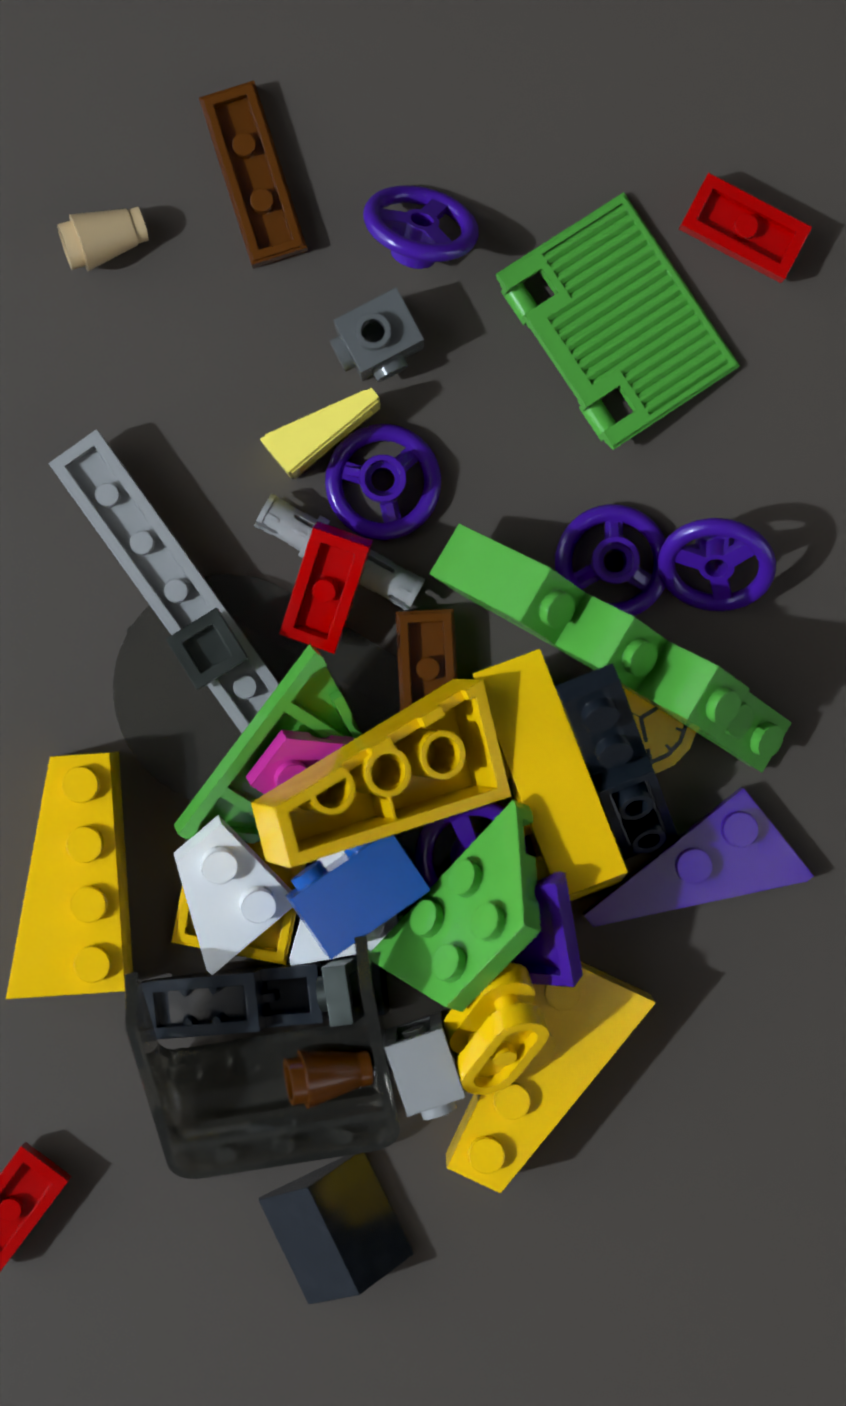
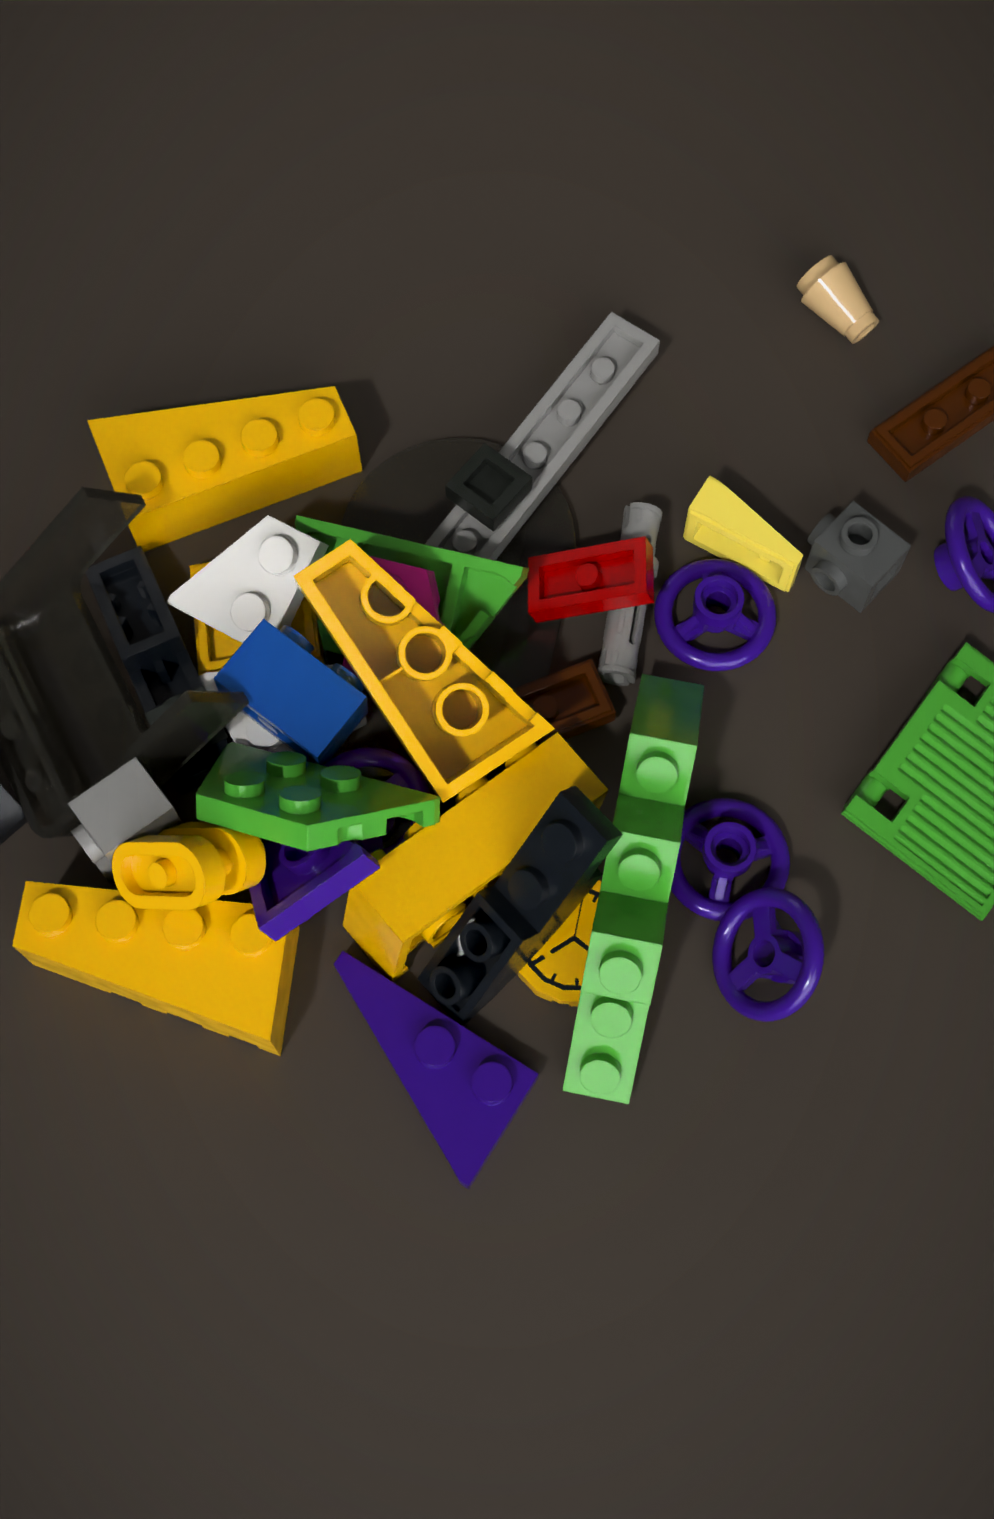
camera: 75 degrees right, 20 degrees down
(324, 1075) = (90, 732): reddish brown cone -> none

